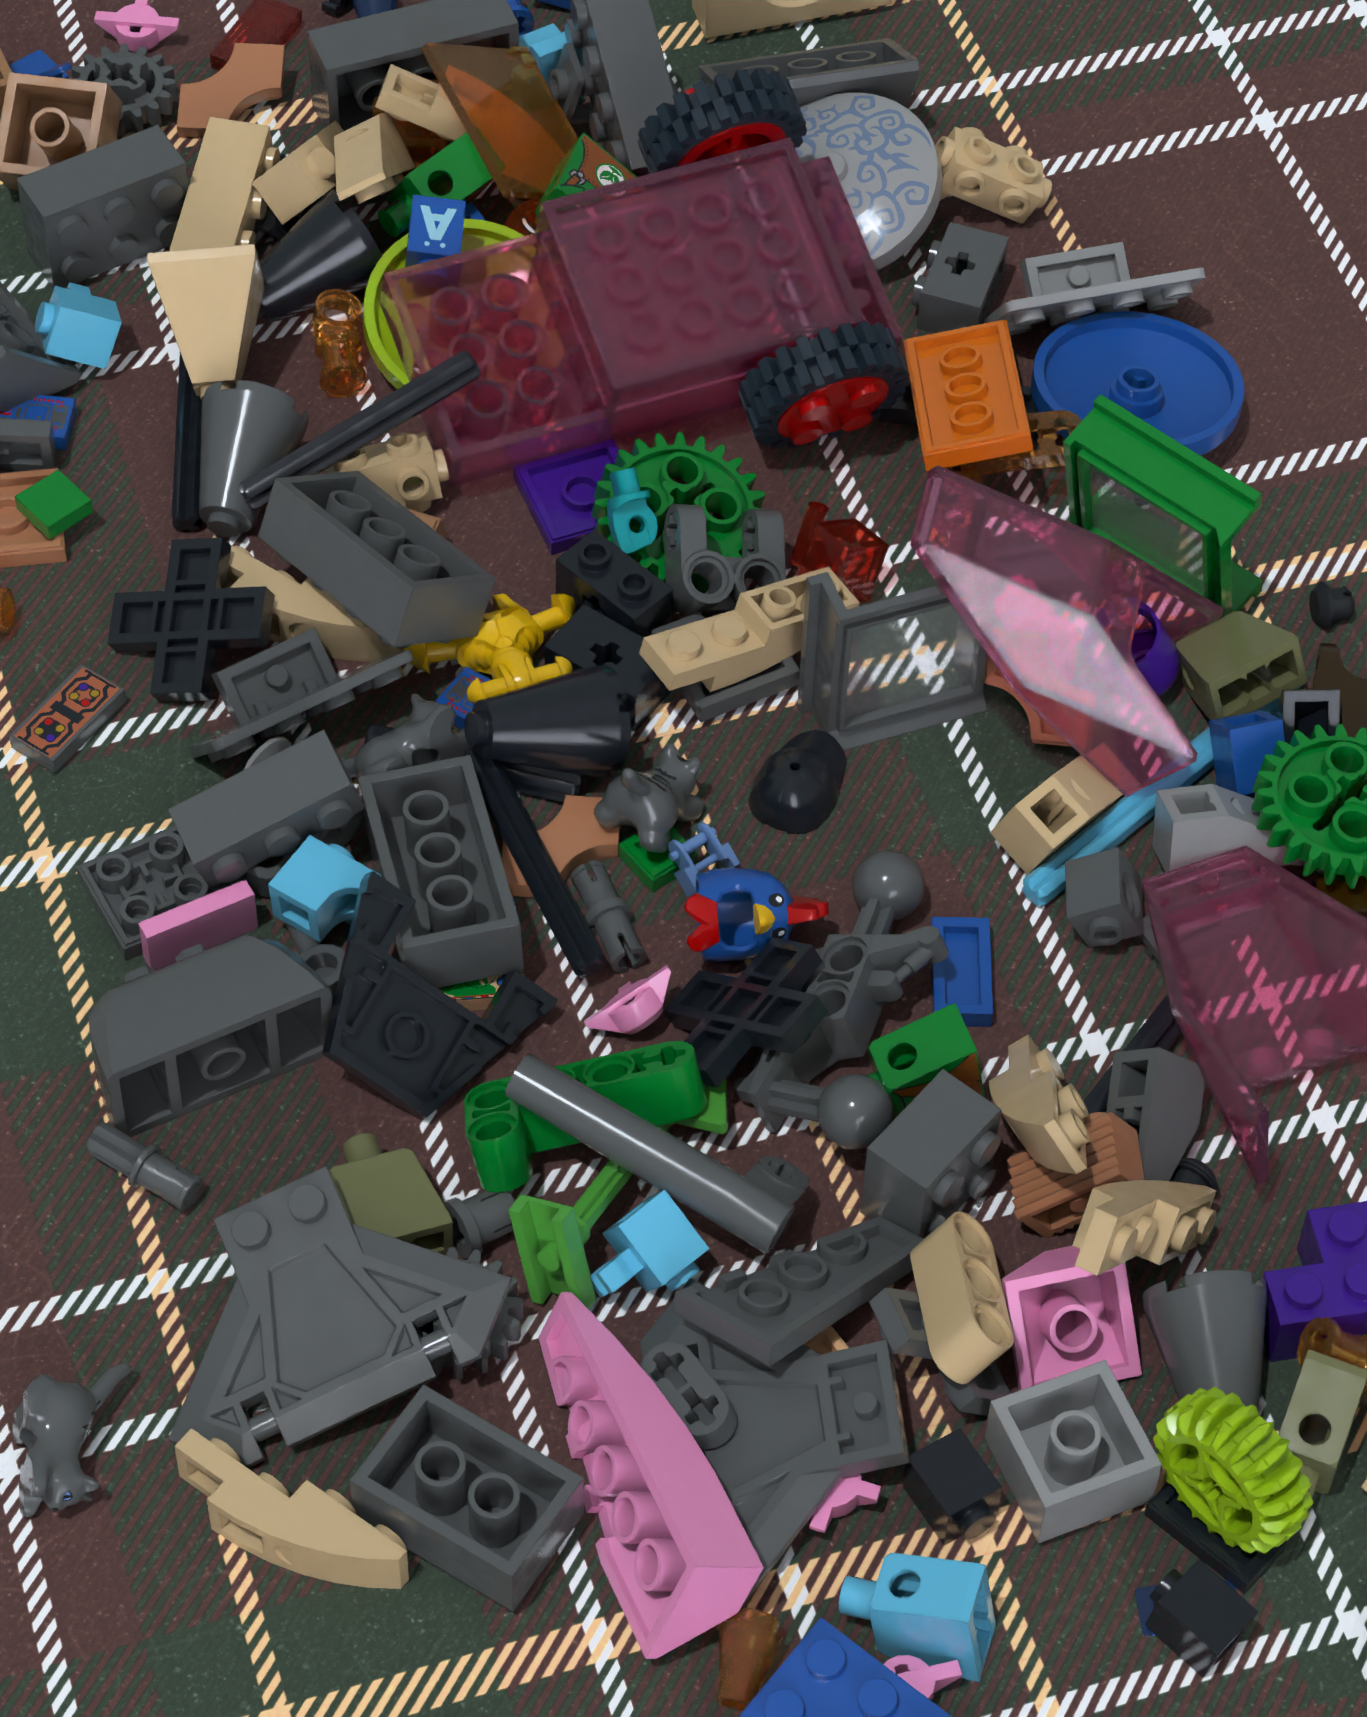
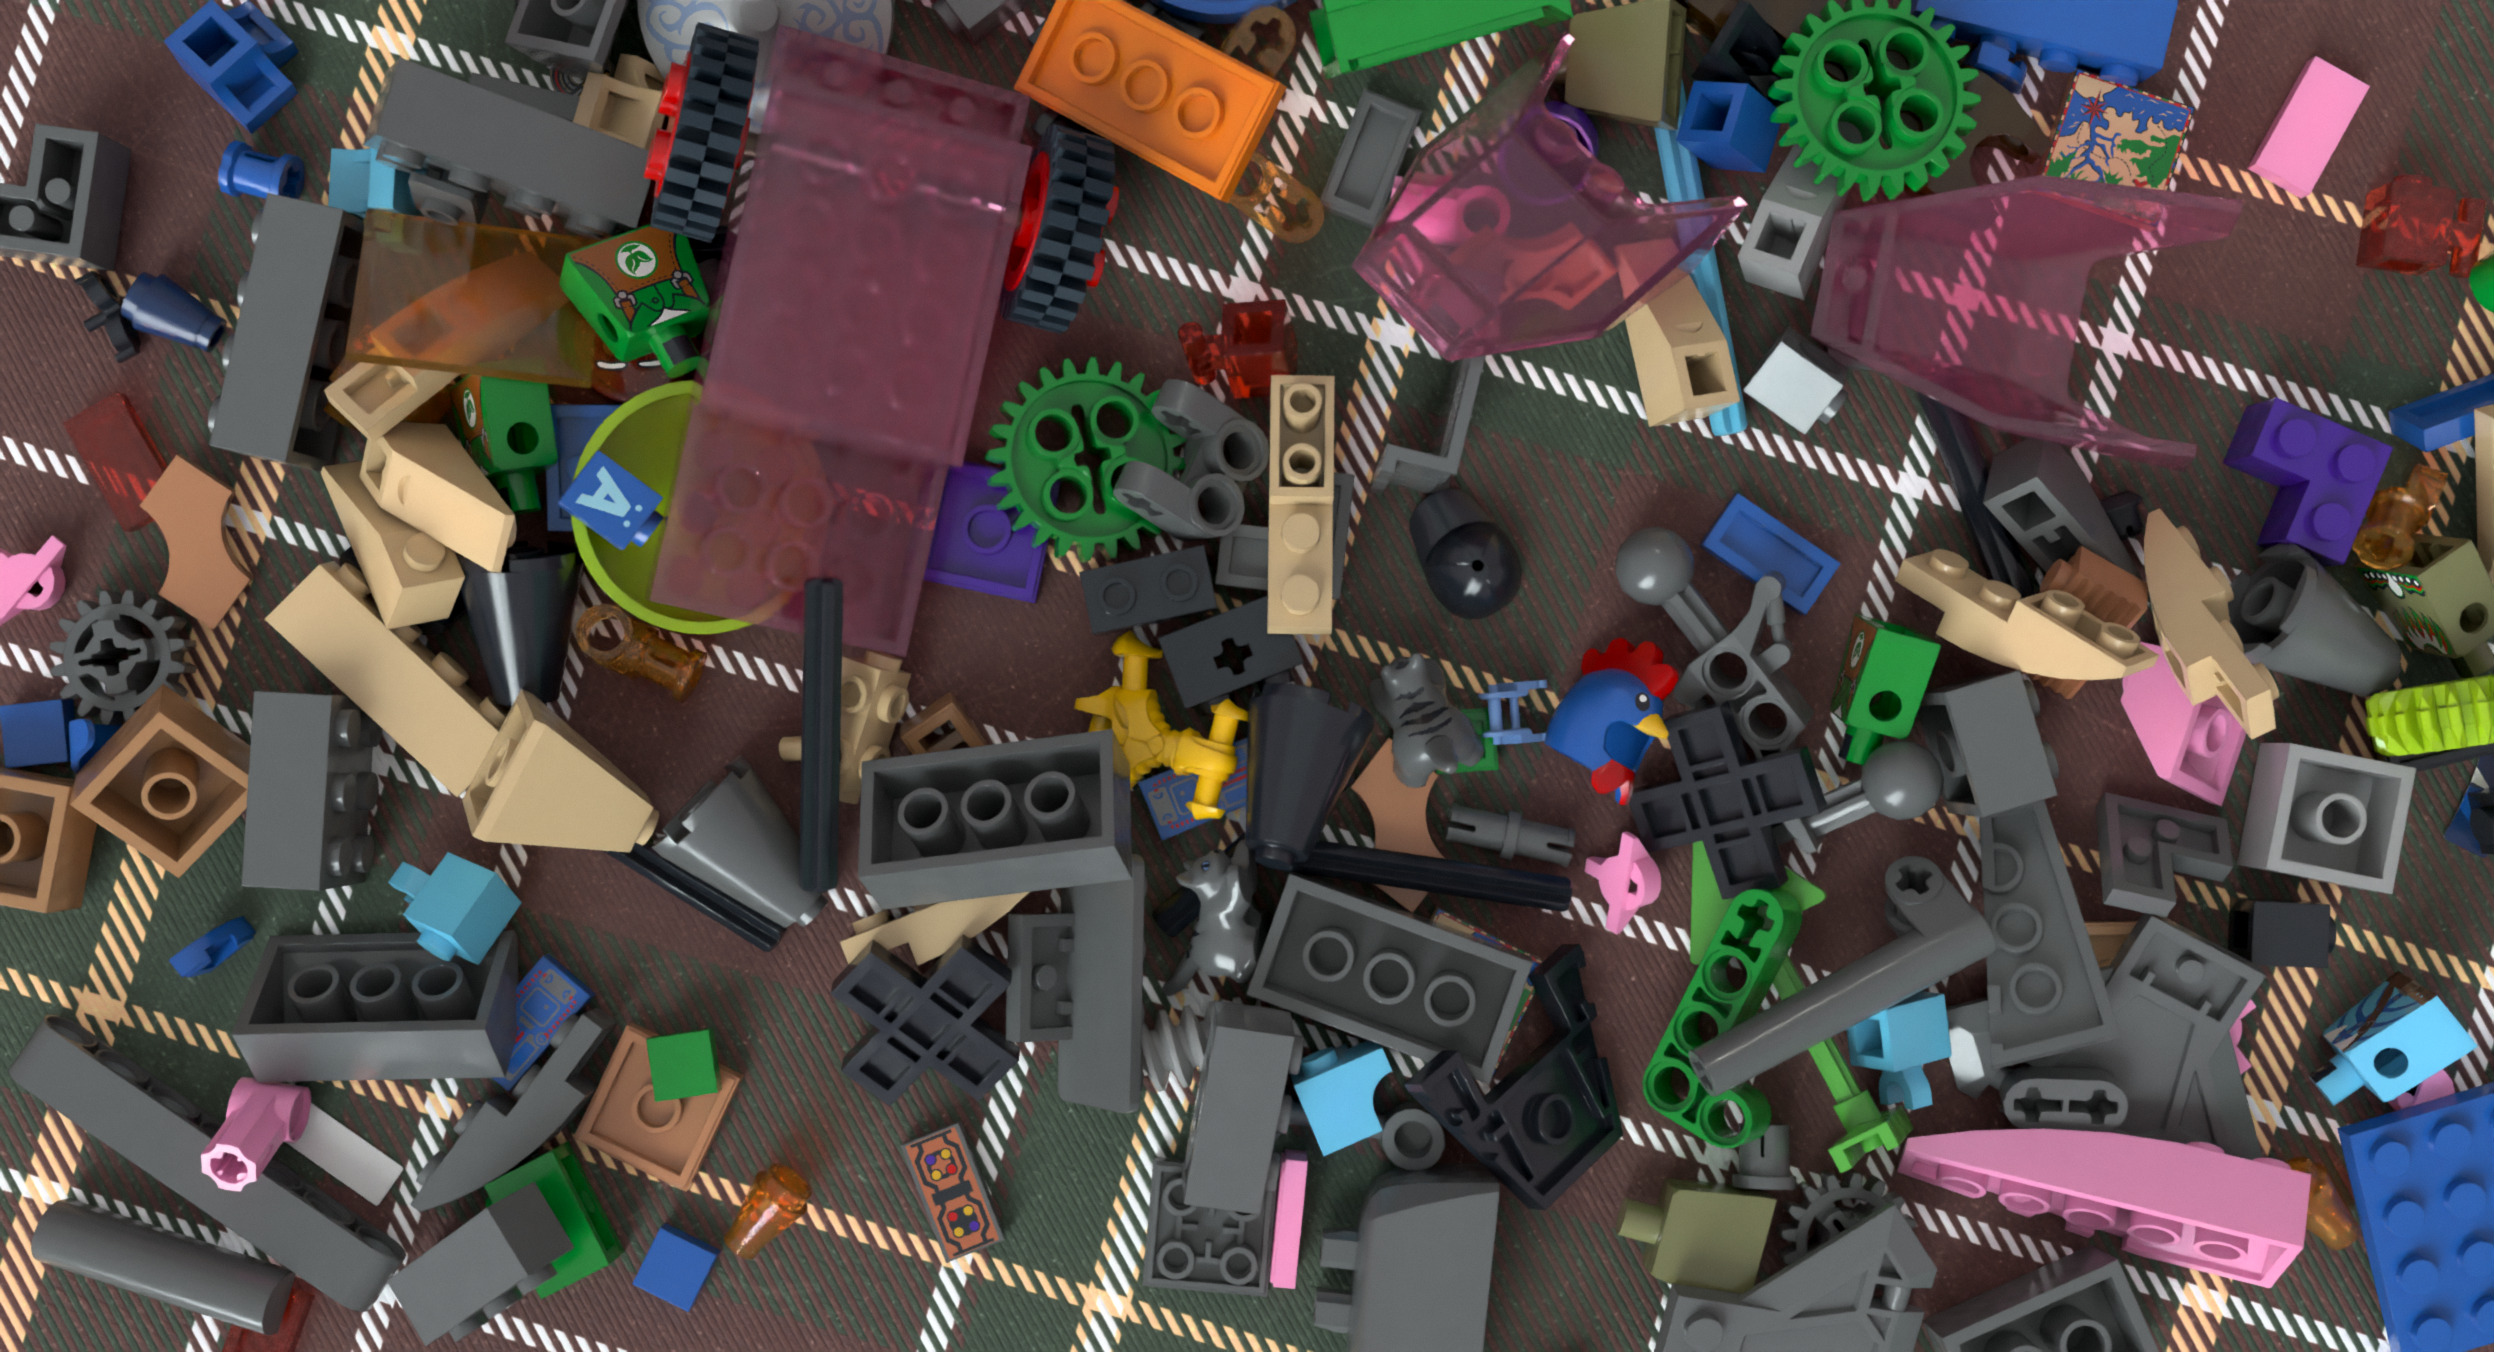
camera: 55 degrees left, 35 degrees up
(627, 504) = (1077, 523): teal piece -> none
(961, 1298) = (2147, 819): tan beam -> none

